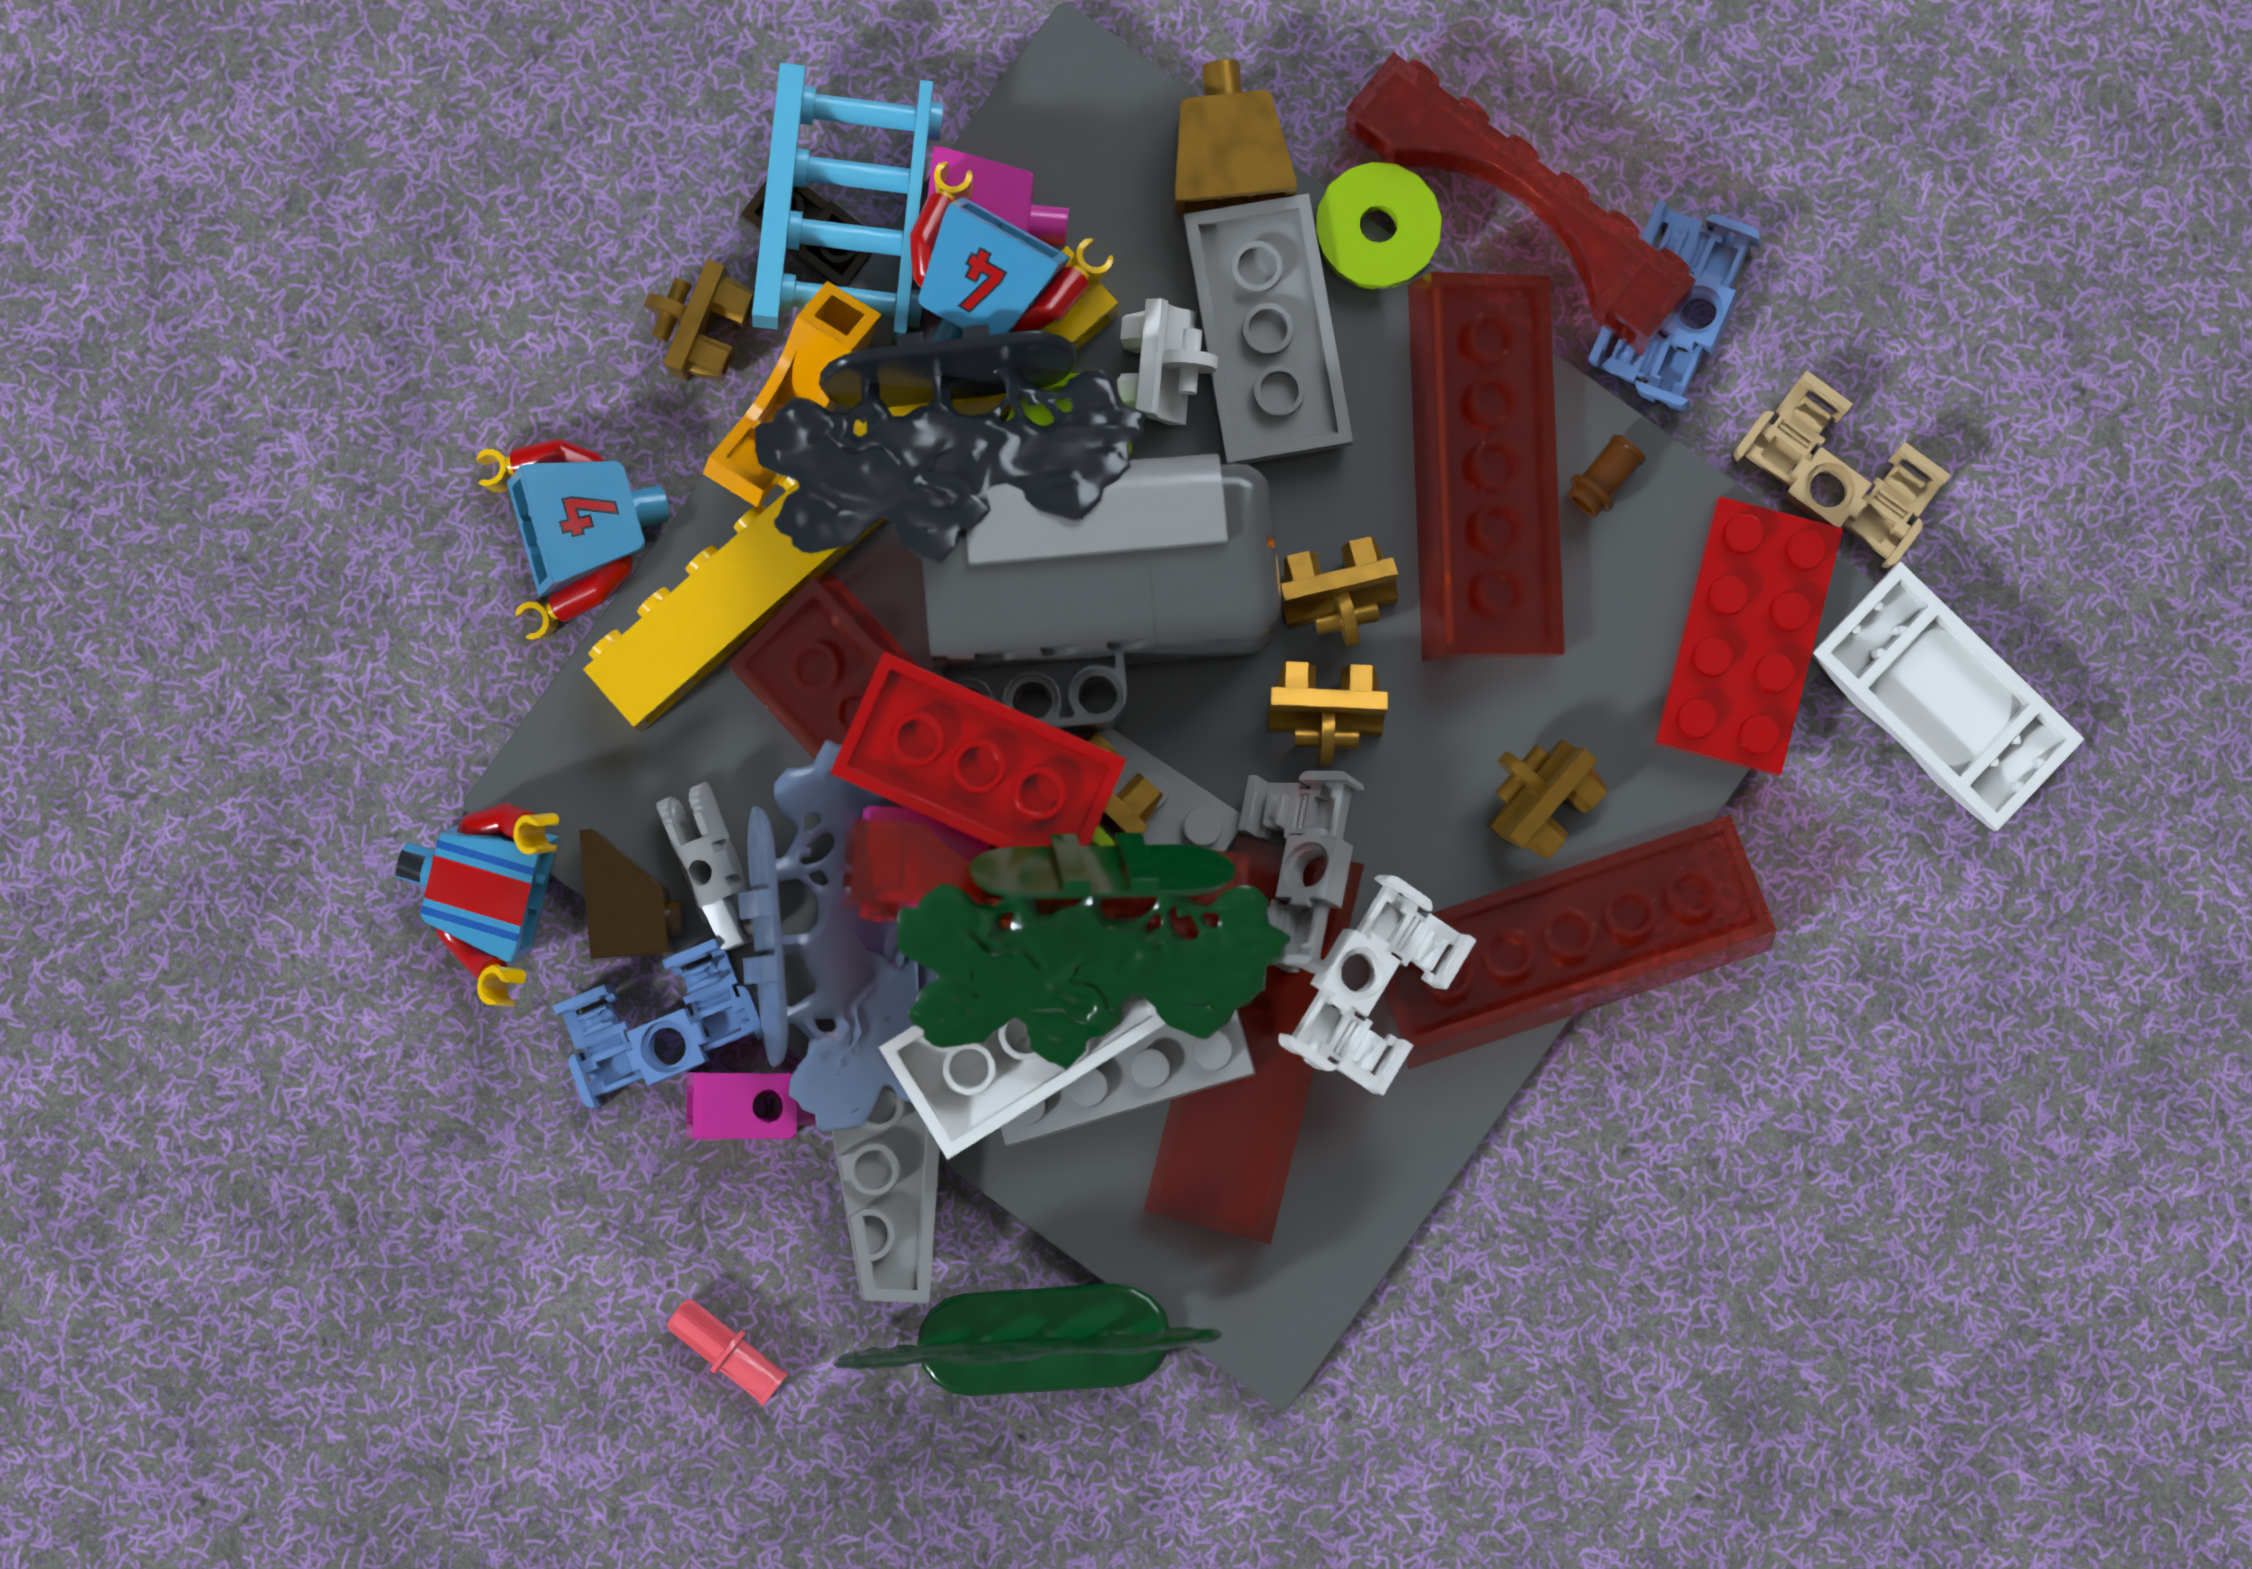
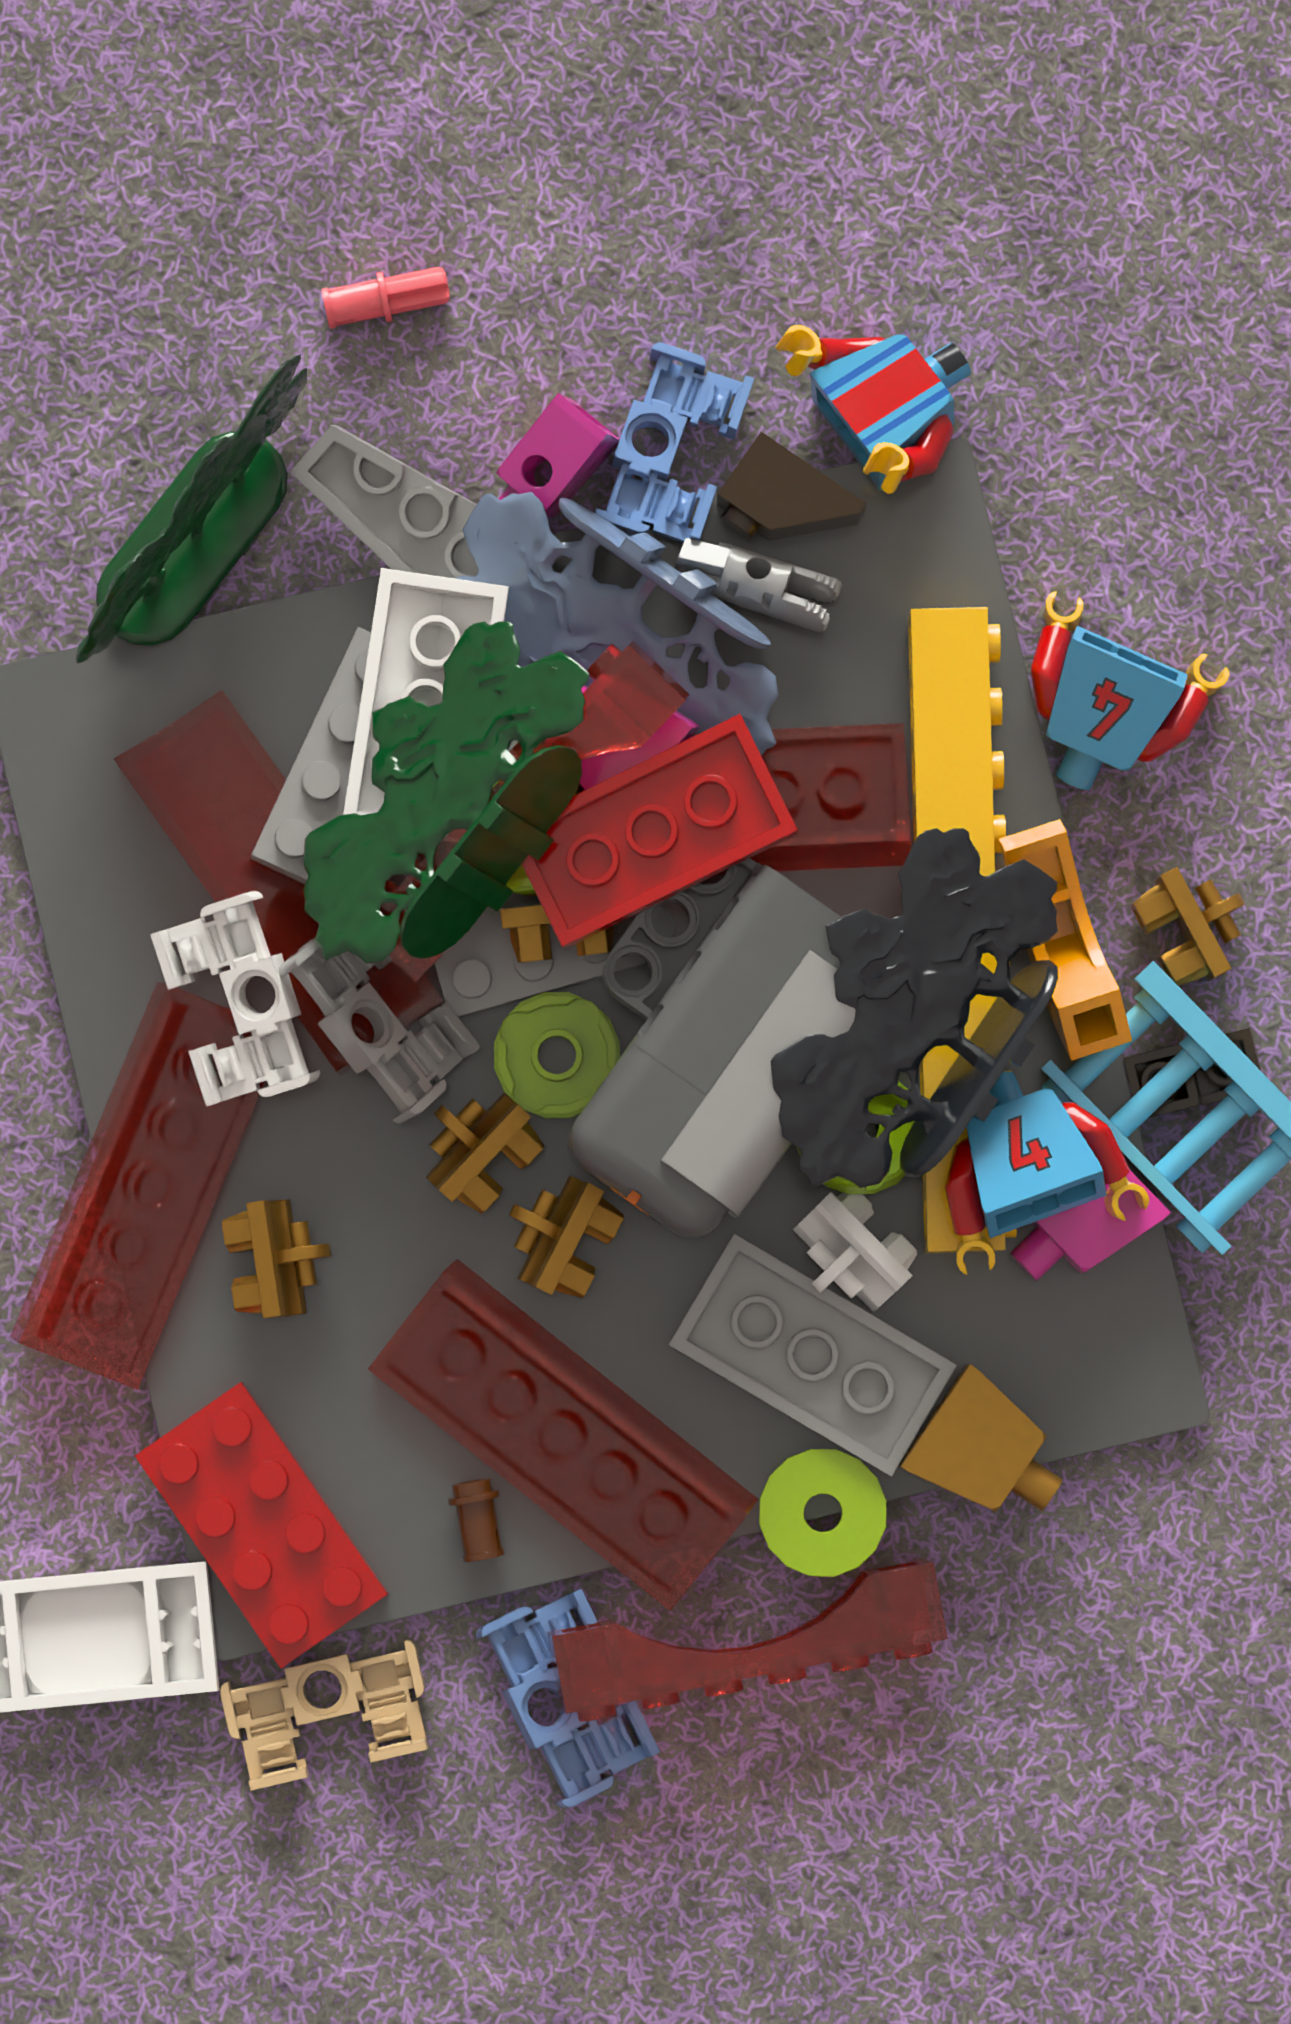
camera: 135 degrees right, 0 degrees up
(1197, 752) = (545, 1018): none -> lime tile

